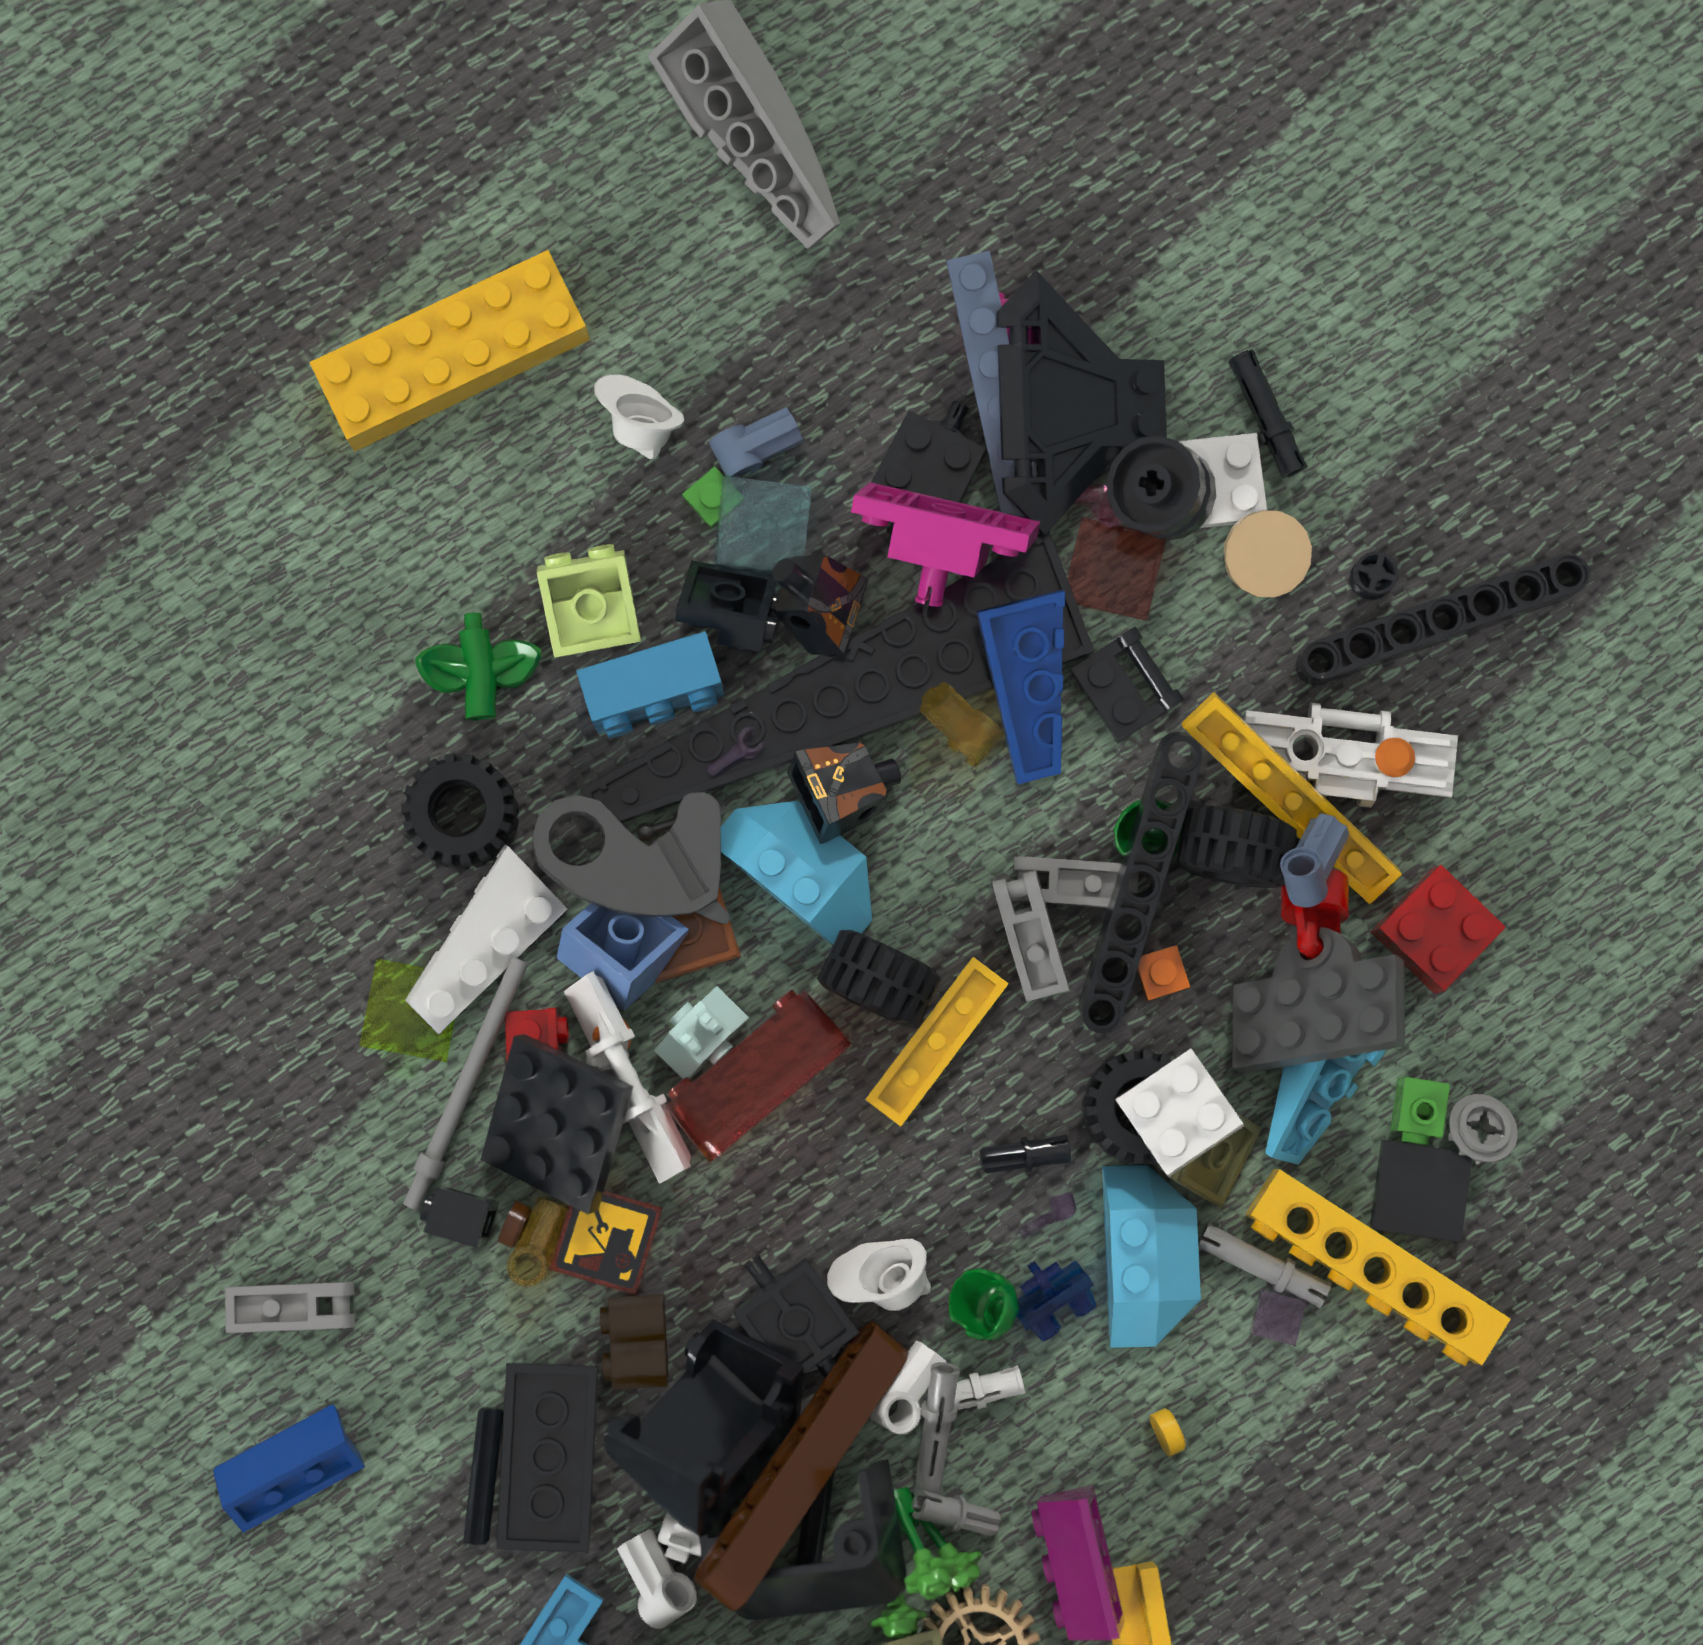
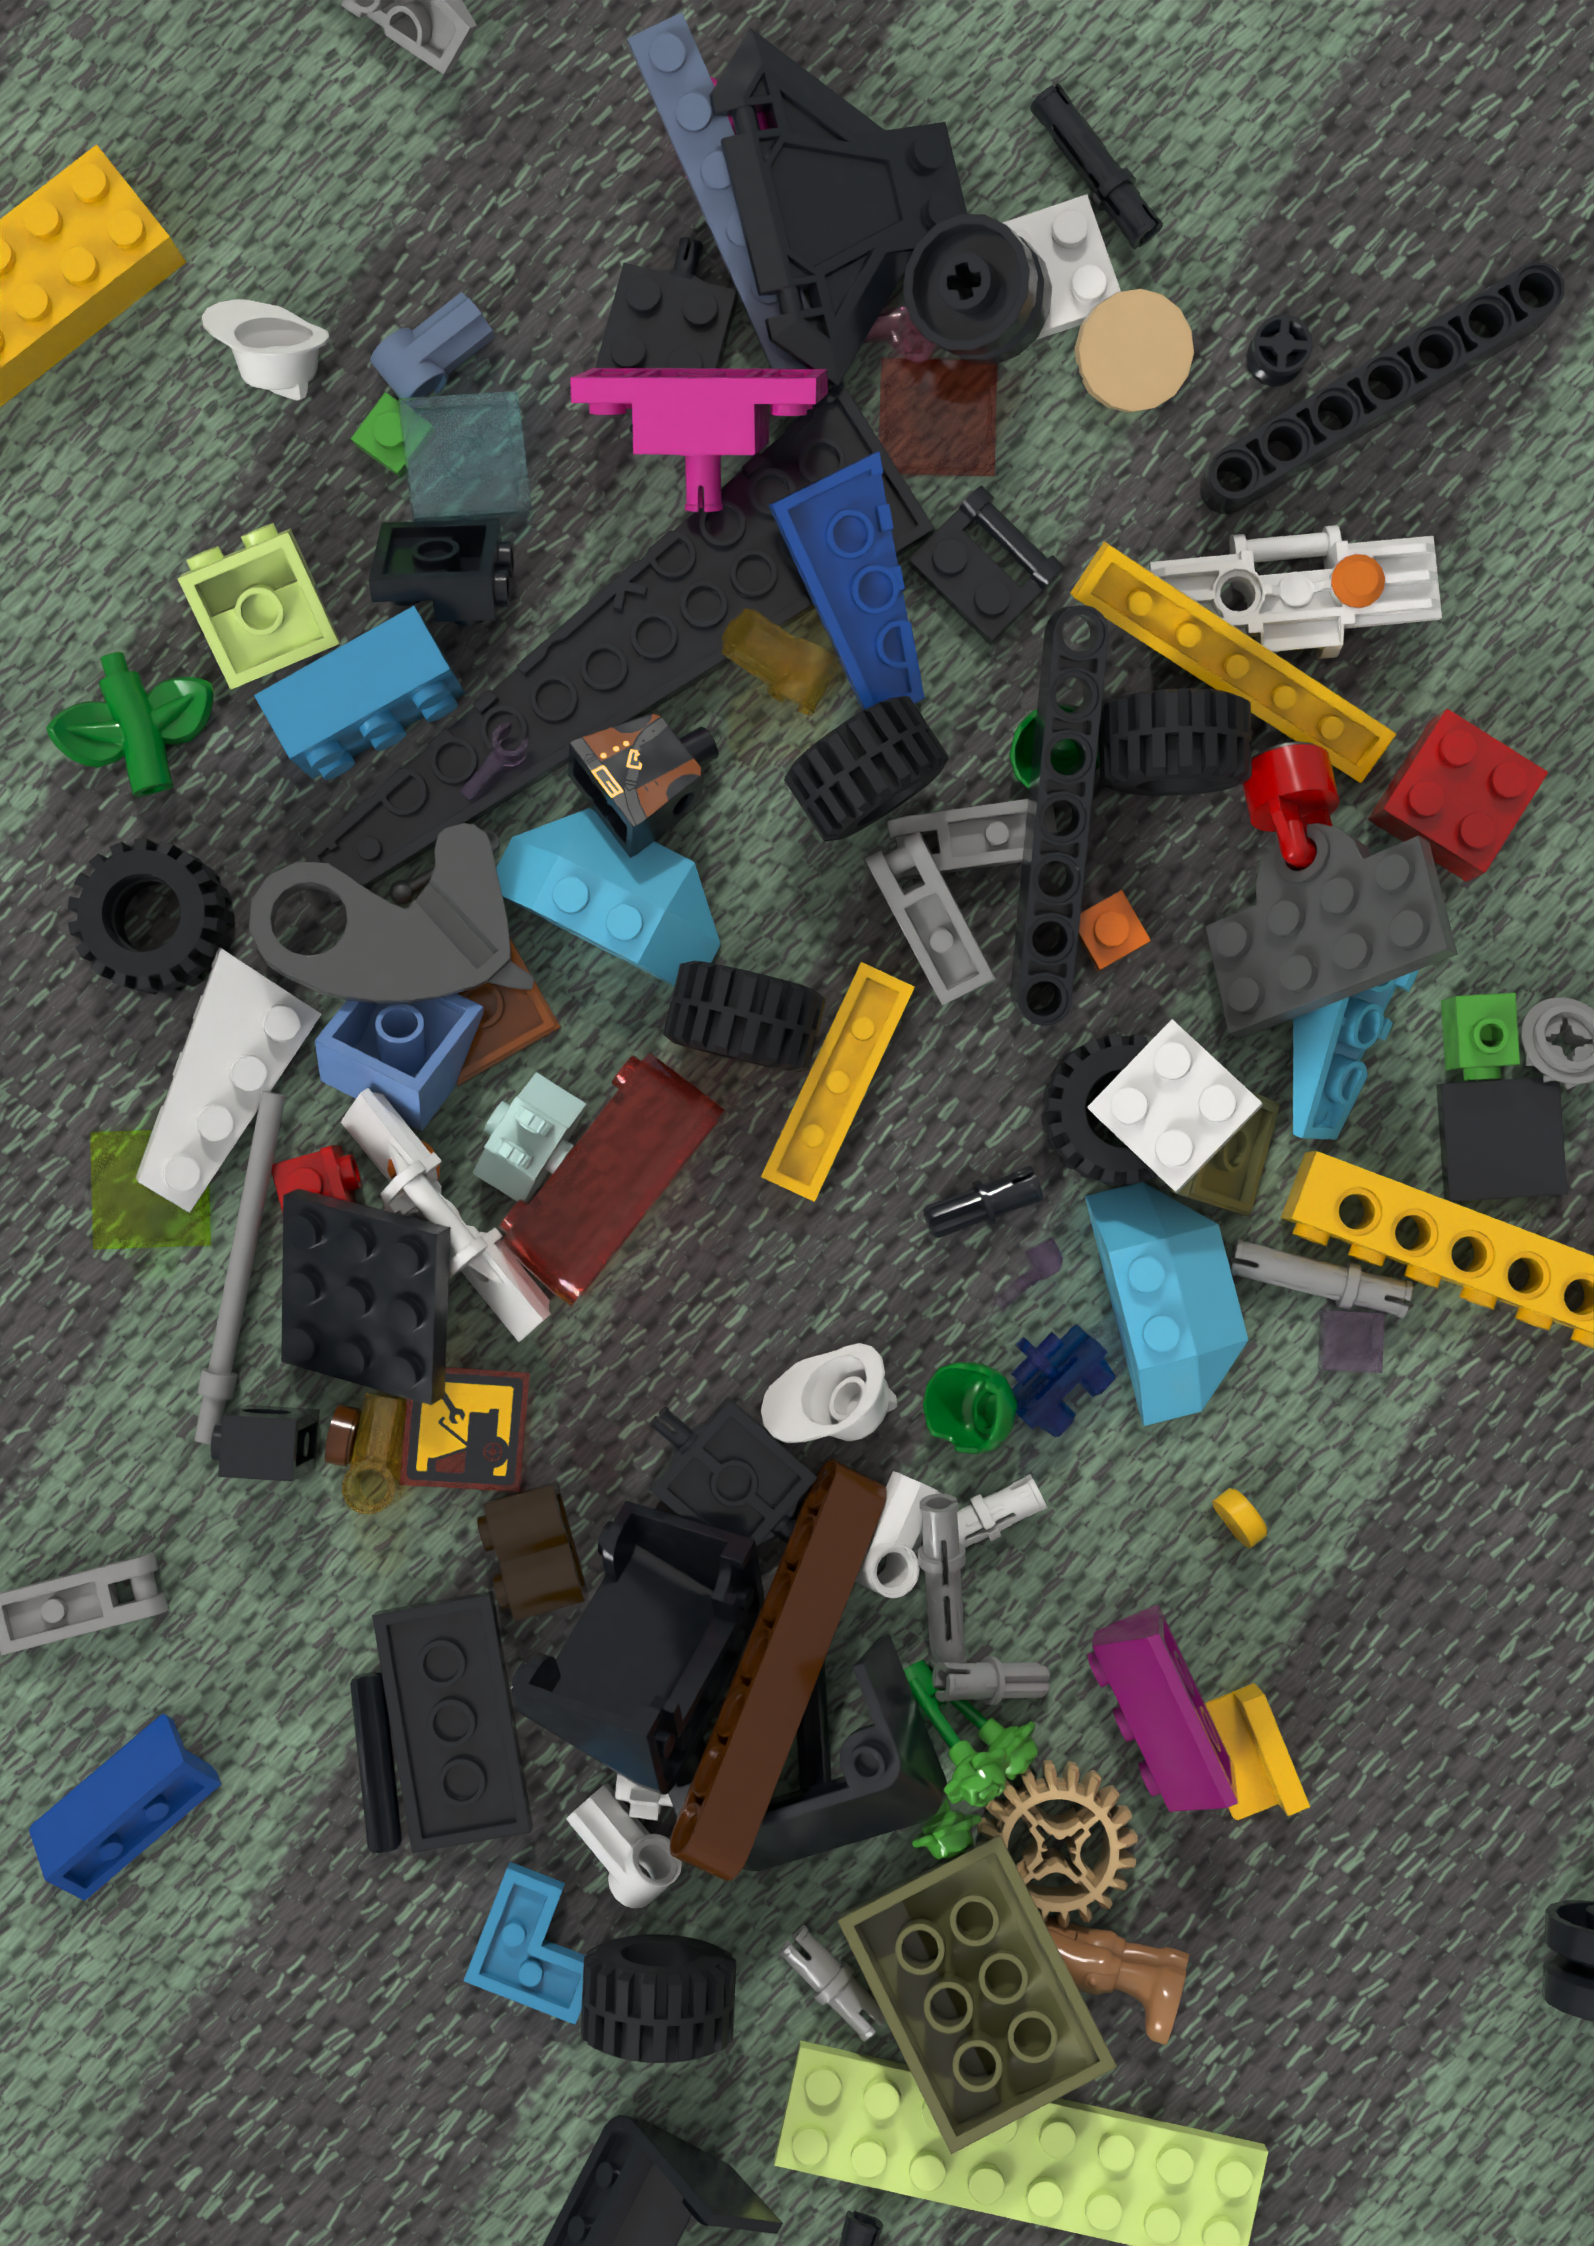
camera: 10 degrees left, 5 degrees up
(818, 601) = (557, 537): black torso -> none
(1006, 816) = (866, 768): none -> black tyre
(1312, 860) = (1279, 740): sand blue piece -> none

